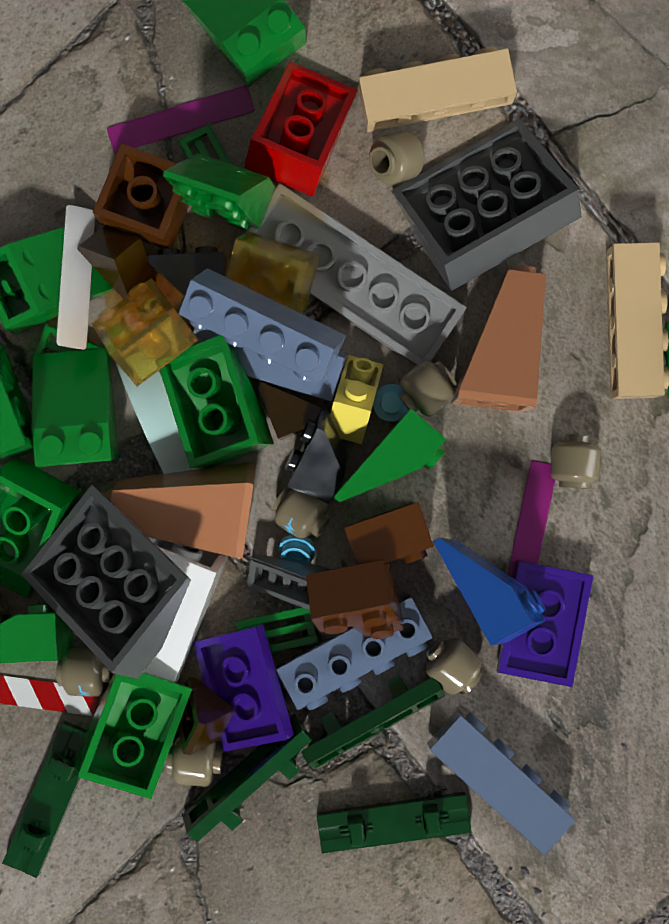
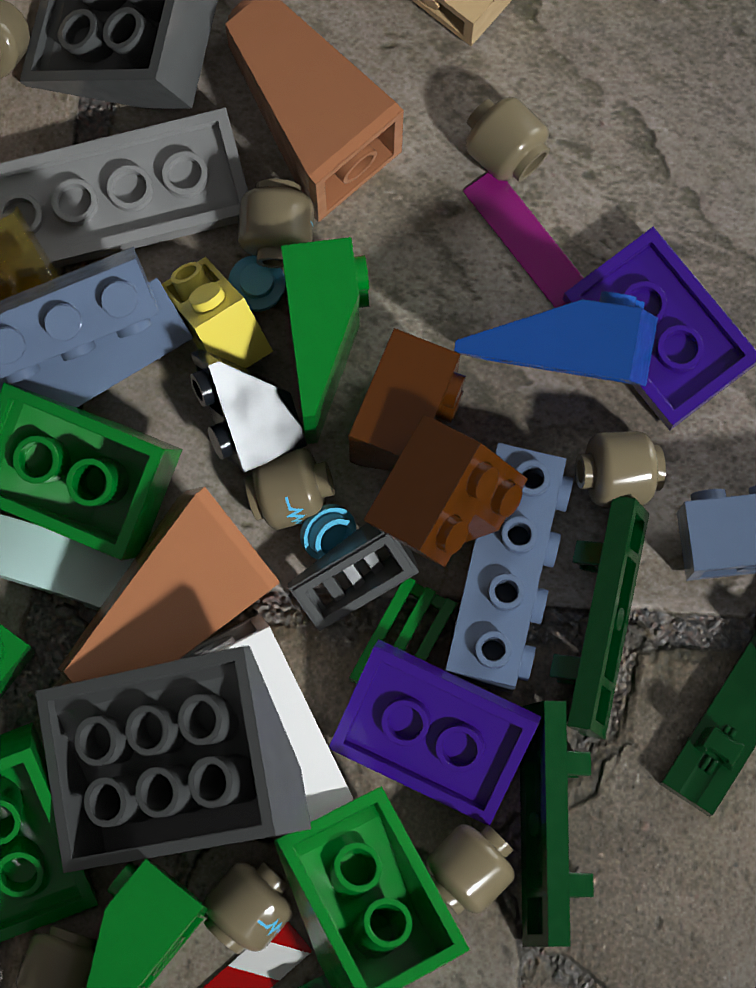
camera: 55 degrees left, 10 degrees down
(203, 717) = (429, 807): dark brown slope -> none
(286, 411) = (157, 404): dark brown slope -> none

